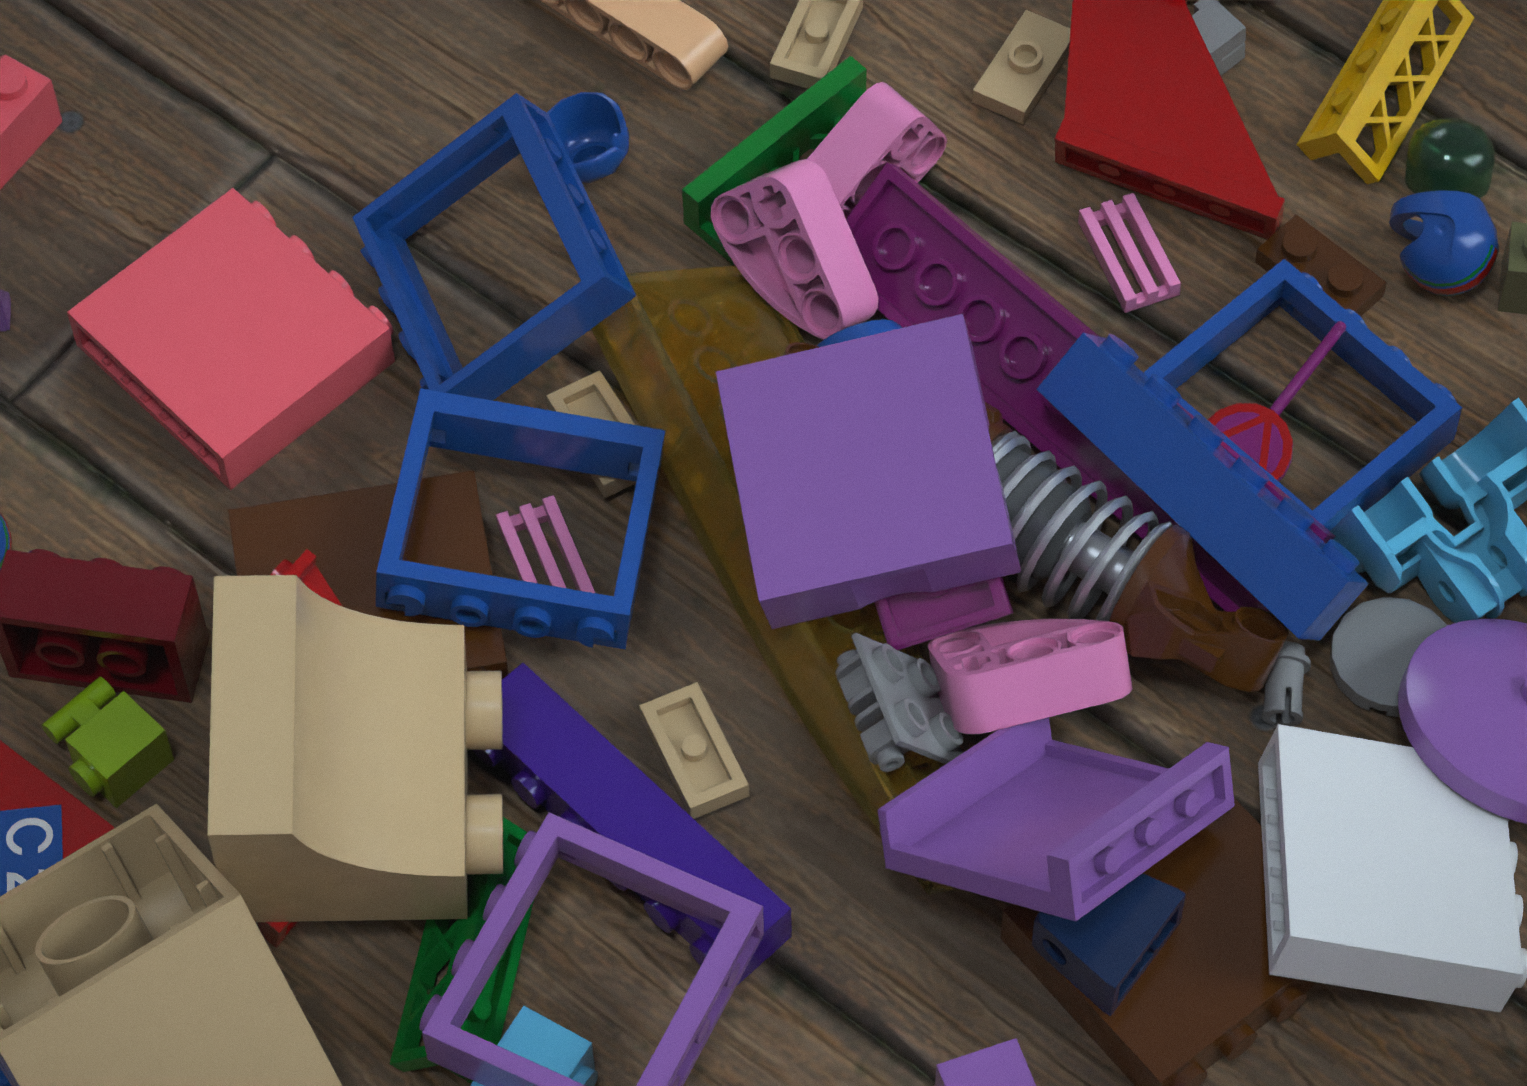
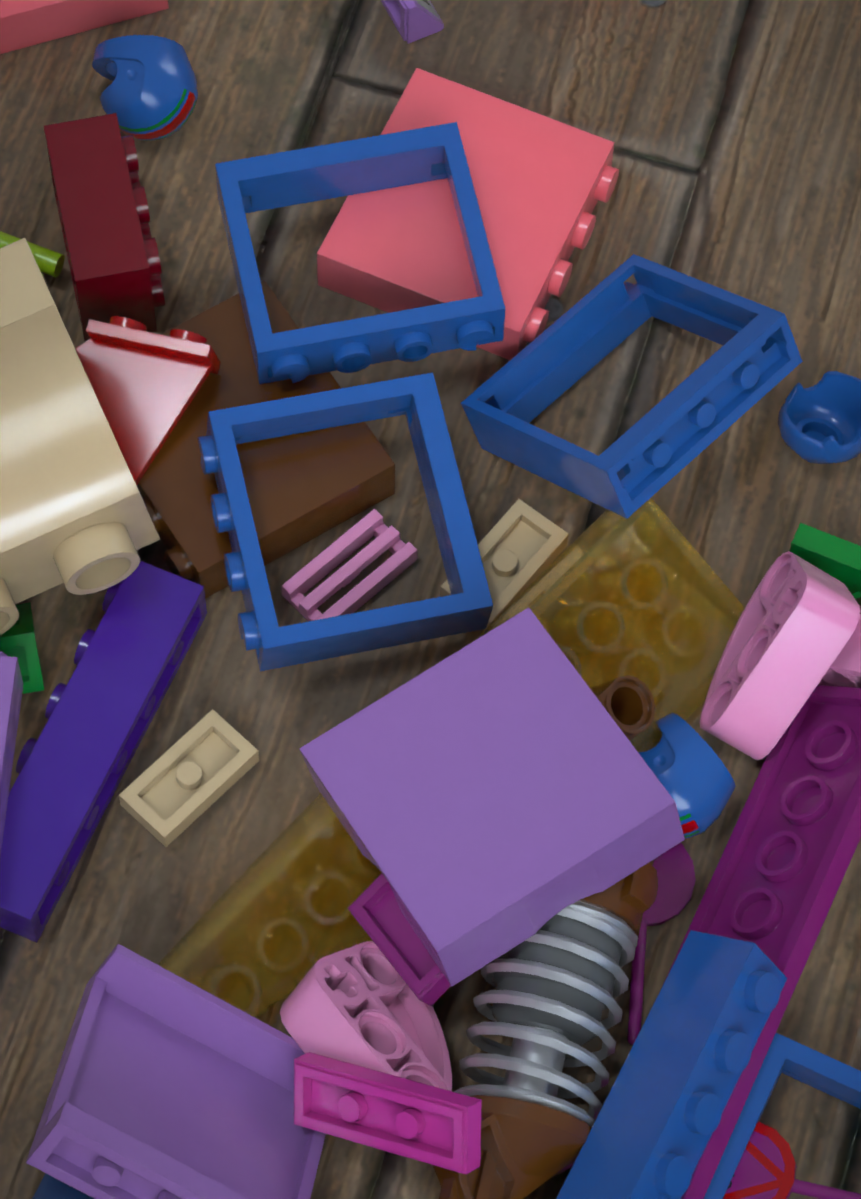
camera: 65 degrees right, 5 degrees up
(240, 511) = (343, 171): none -> blue window
(895, 704) = (277, 935): light grey hinge -> none
(1108, 665) = (388, 1112): none -> dark pink tile

